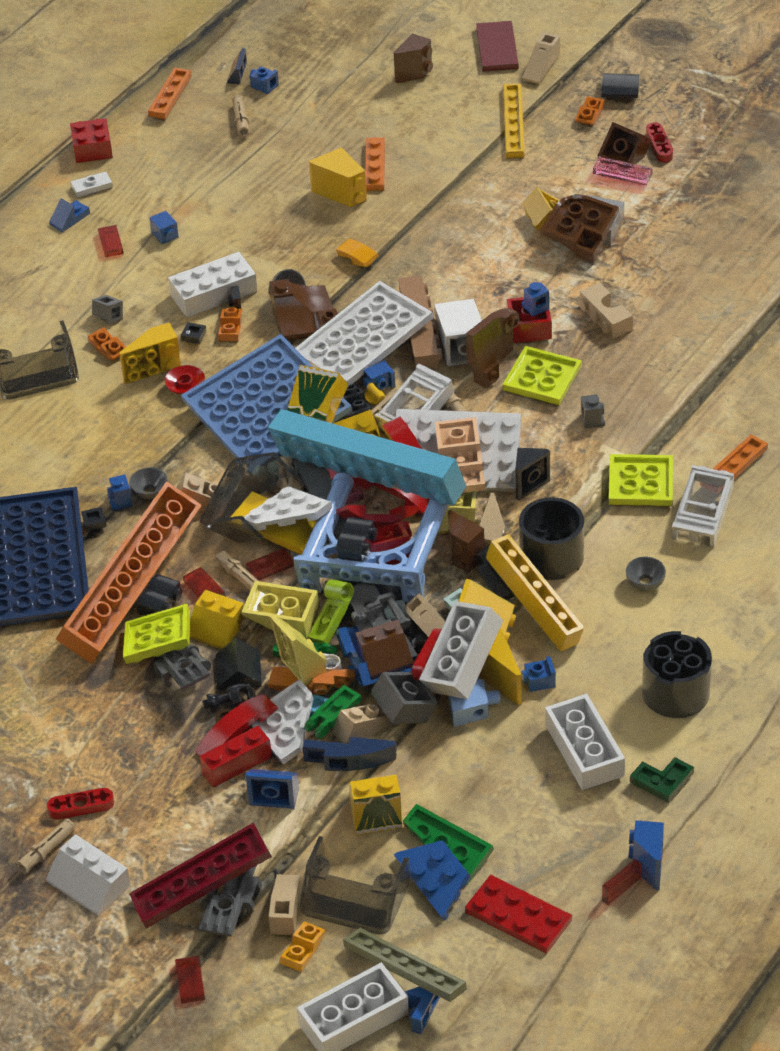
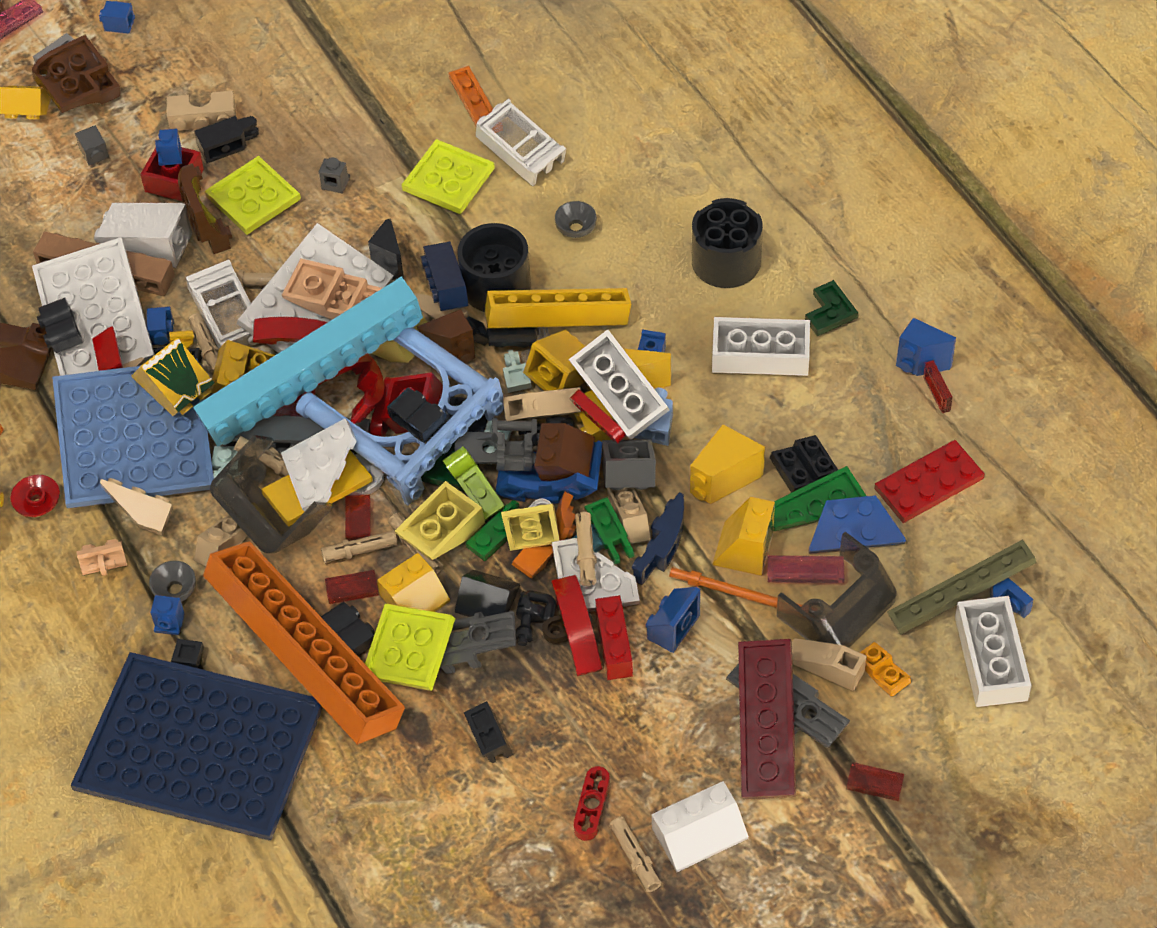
camera: 65 degrees left, 10 degrees up
(110, 715) = (488, 732): none -> black hinge
(149, 437) = (101, 558): none -> light nougat hips
(199, 438) = (145, 511): none -> tan slope
(300, 700) = (585, 549): none -> tan pin
(325, 793) = (695, 579): none -> orange bar
(329, 356) = (107, 350): none -> red slope
(334, 319) = (59, 325): none -> black brick
(370, 852) = (805, 569): none -> clear pink plate
(438, 759) = (726, 465): none -> yellow slope
(485, 818) = (803, 463): none -> black slope
(504, 515) = (444, 276): none -> dark blue brick
(528, 267) = (92, 145): none -> dark grey brick
(587, 335) = (225, 137): none -> black hinge
(668, 224) = (117, 17): none -> blue brick

